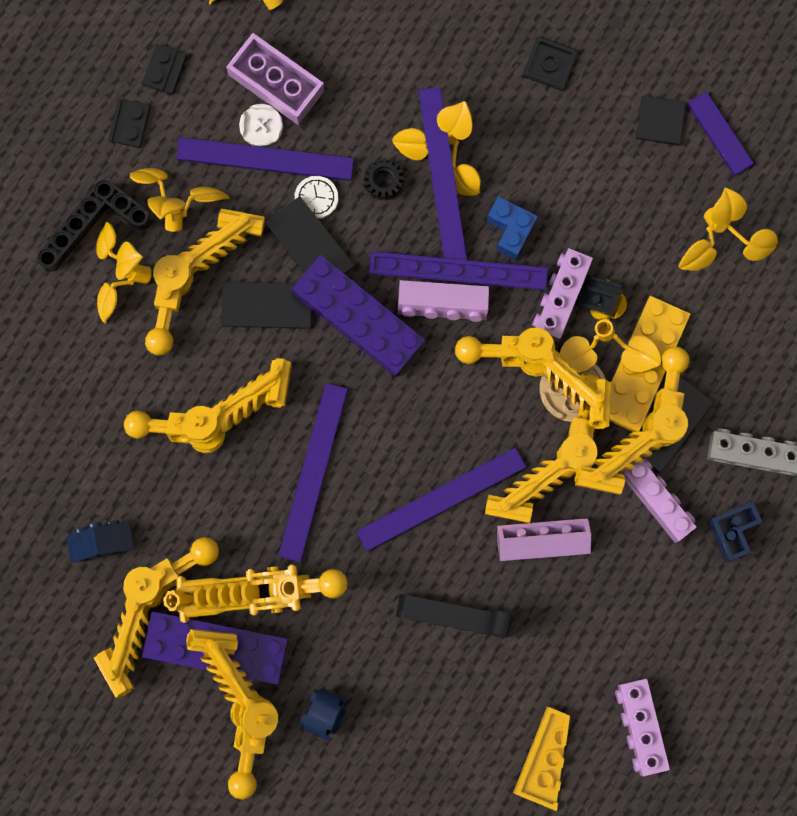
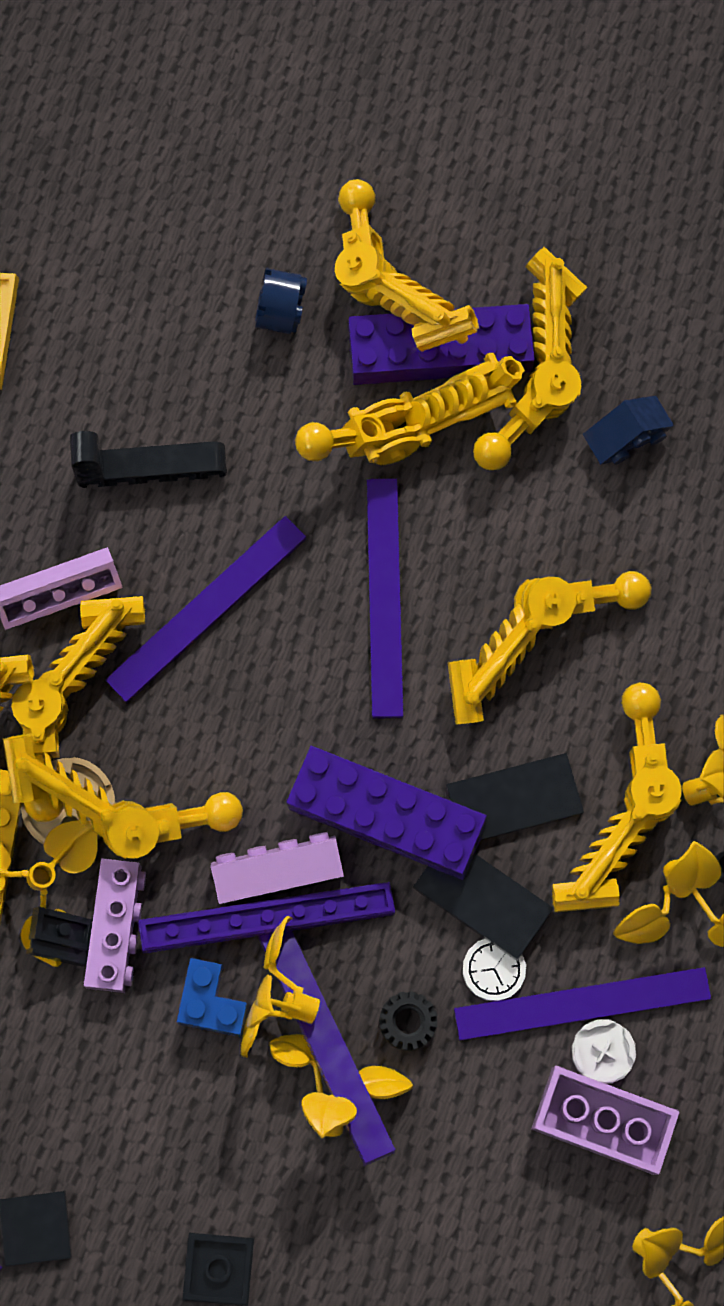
camera: 165 degrees right, 5 degrees down
(483, 199) = (294, 1004): none -> yellow plant

